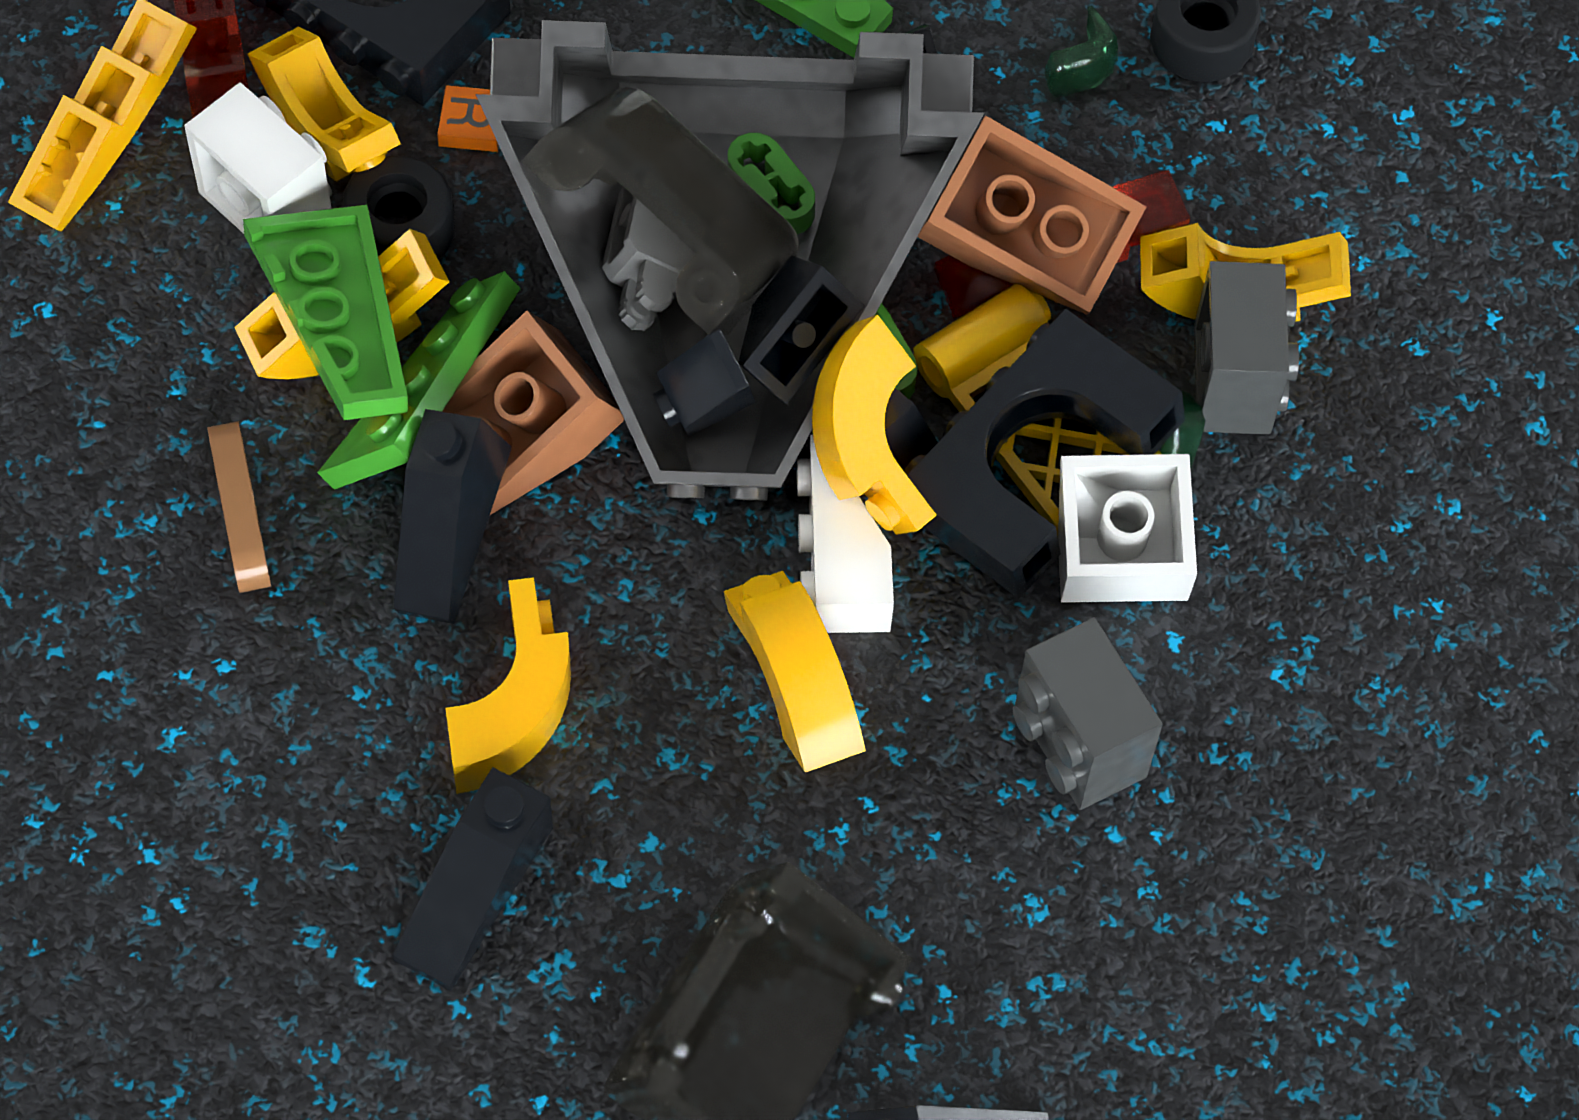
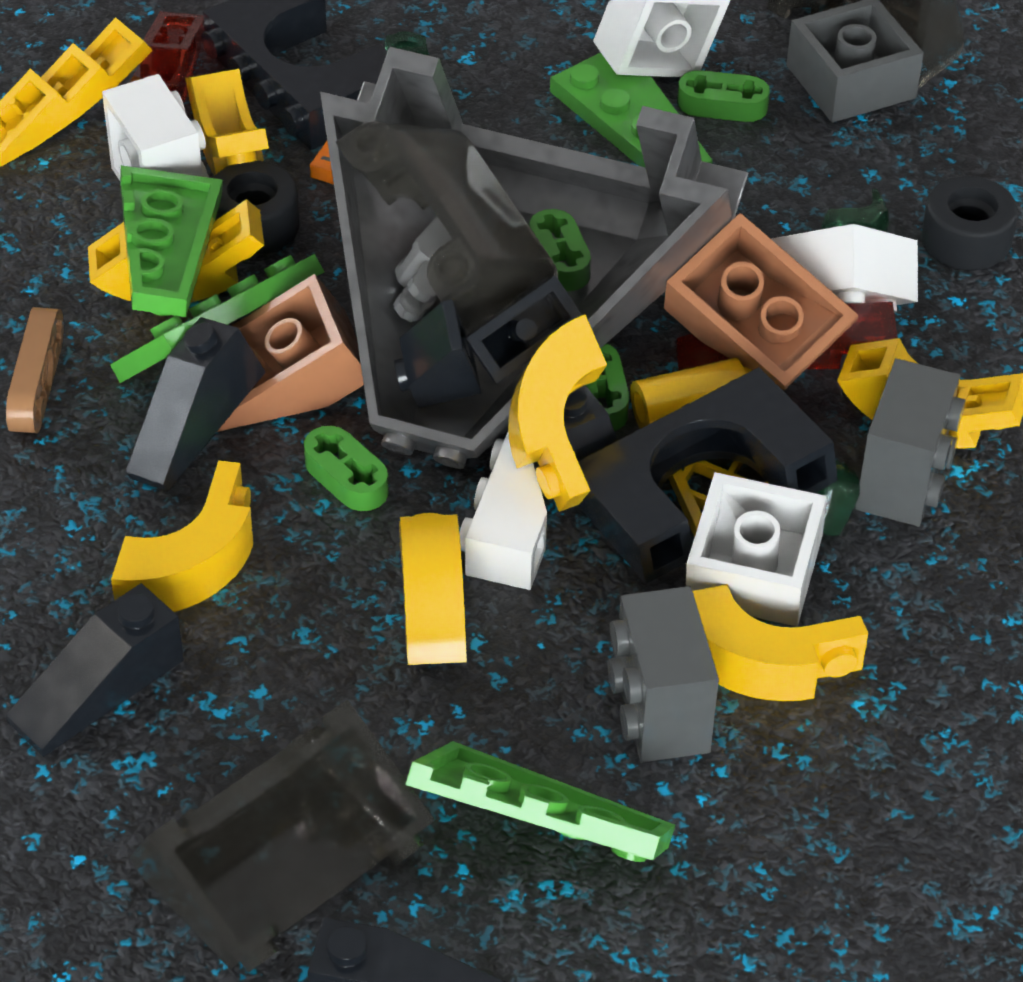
camera: 20 degrees right, 15 degrees down
(634, 540) = (339, 474): none -> bright green beam
(990, 897) = (540, 800): none -> bright green wing
(1109, 132) = (858, 263): none -> white slope
(1177, 655) = (772, 659): none -> yellow arch

